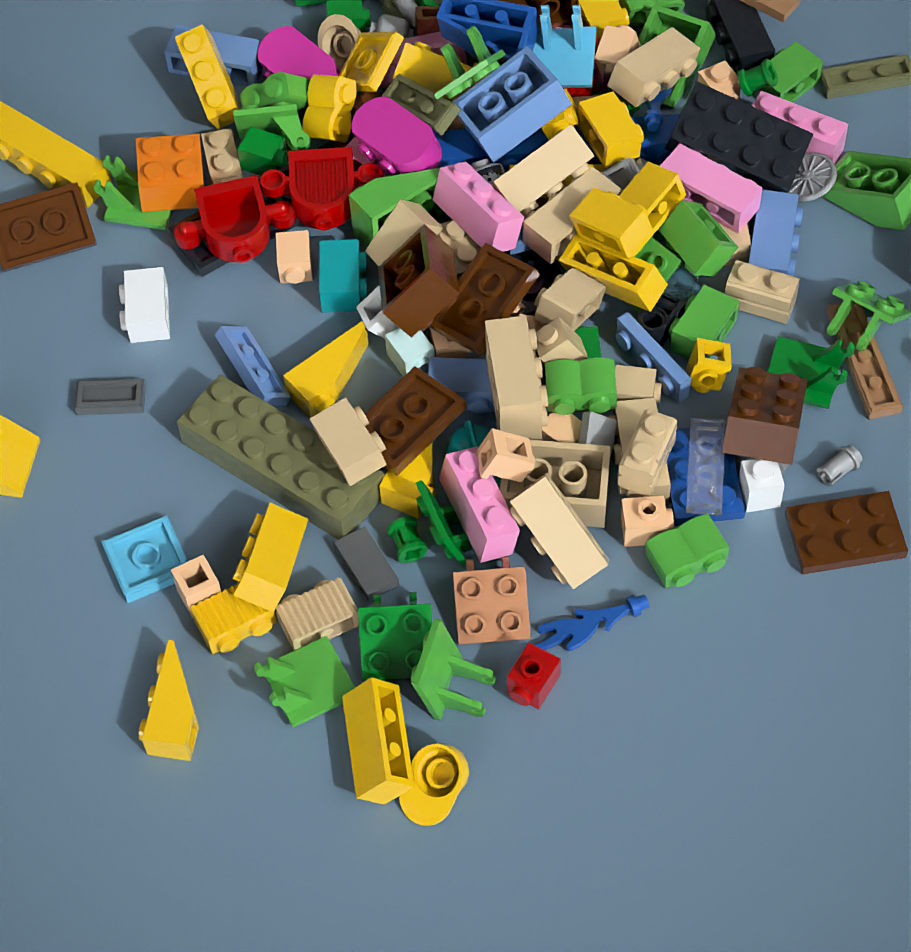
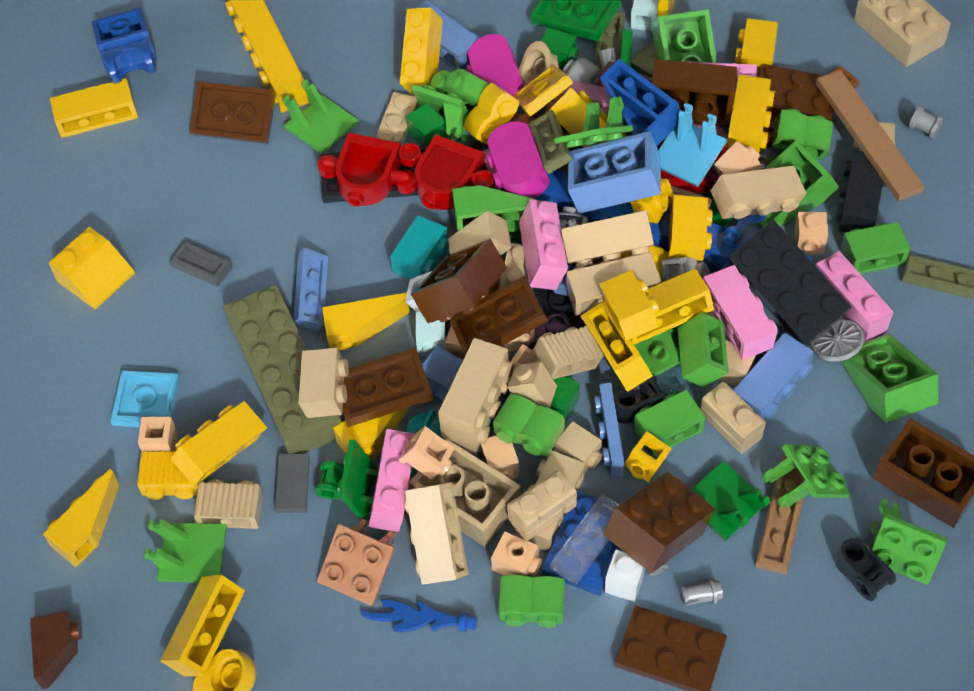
camera: 30 degrees right, 0 degrees up
(145, 305) = (268, 206): white brick -> none
(169, 171) = (345, 109): orange brick -> none
(227, 842) = (53, 645): none -> copper slope
(294, 257) = (395, 218): light nougat brick -> none
(392, 637) = (270, 553): green plate -> none
(435, 670) = (278, 594): bright green plate -> none
(533, 676) = (349, 637): red brick -> none
(597, 430) = (521, 468): light grey tile -> none
(757, 77) = (842, 238): green bush -> none

